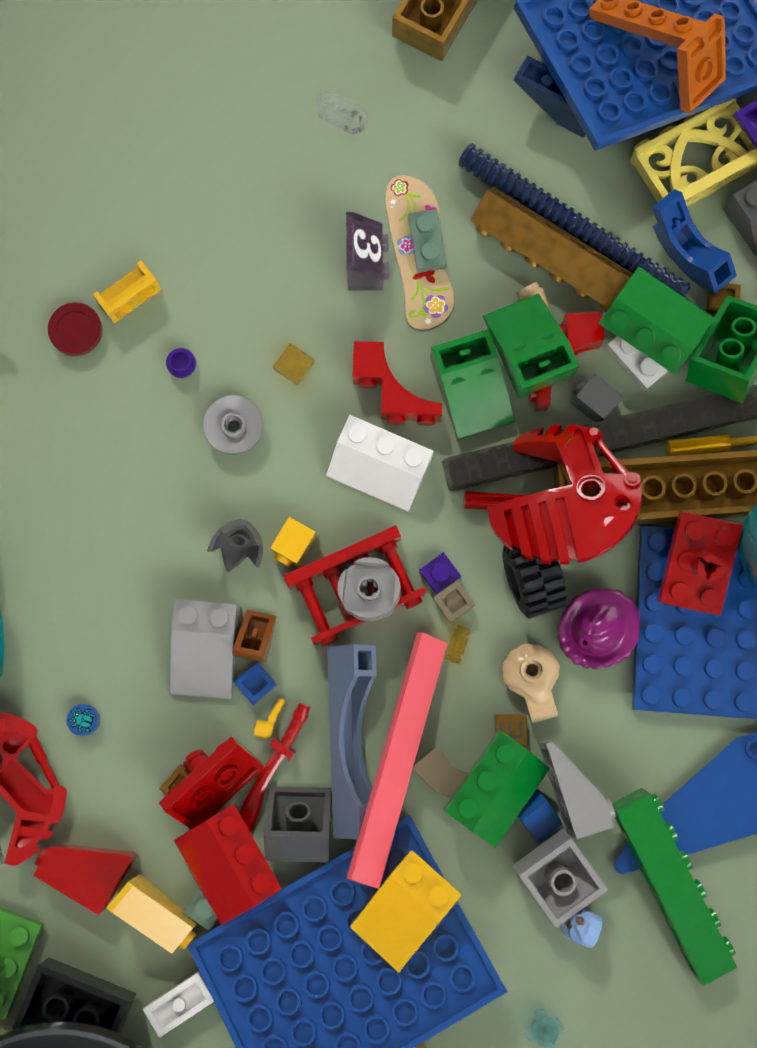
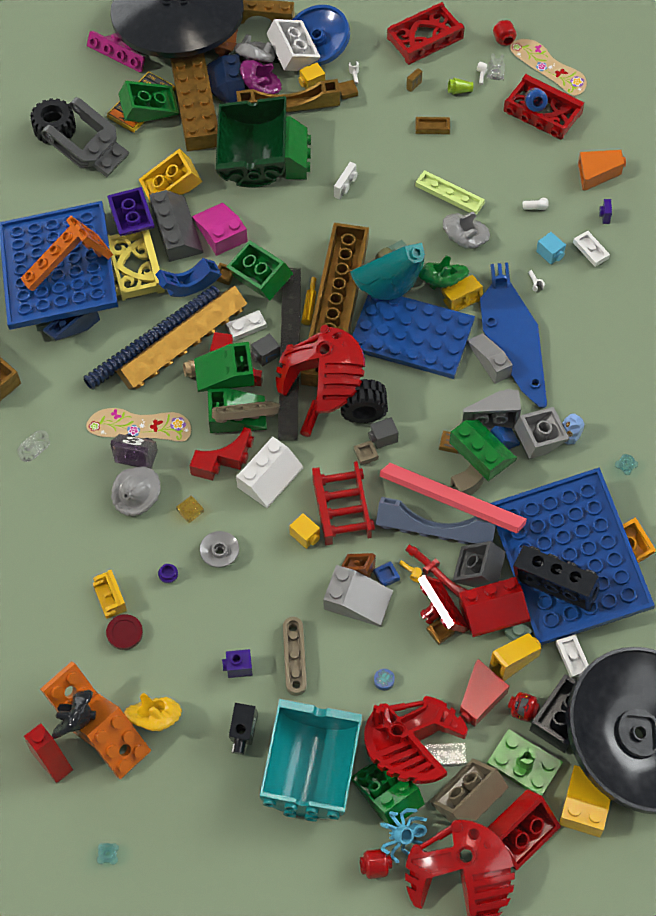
camera: 75 degrees left, 20 degrees down
(57, 501) = (238, 663): none -> dark purple brick
(76, 944) = (524, 706): none -> red head
(88, 579) = (294, 656): none -> dark tan plate
(237, 541) = (295, 560): dark grey piece -> none
(259, 1008) = (557, 577): none -> black brick
(298, 277) = (135, 490): none -> light grey piece
(380, 603) = (350, 499): light grey plate -> none
(405, 910) = (542, 508): yellow slope -> none
(427, 241) = (135, 417): sand green plate -> none
(439, 573) = (346, 457): dark purple plate -> none
(457, 644) = (392, 457): clear yellow piece -> none
(464, 396) = (249, 410): none -> dark tan plate
(494, 620) = (383, 433): none -> dark grey brick
(536, 689) = (421, 422): tan animal -> none
(599, 628) = (403, 379): magenta piece -> none
(657, 320) = (231, 302): green slope -> none
(673, 885) = (559, 376): green brick -> none
(686, 761) = (491, 357): none -> light grey slope
(700, 563) = (379, 317): red plate -> none

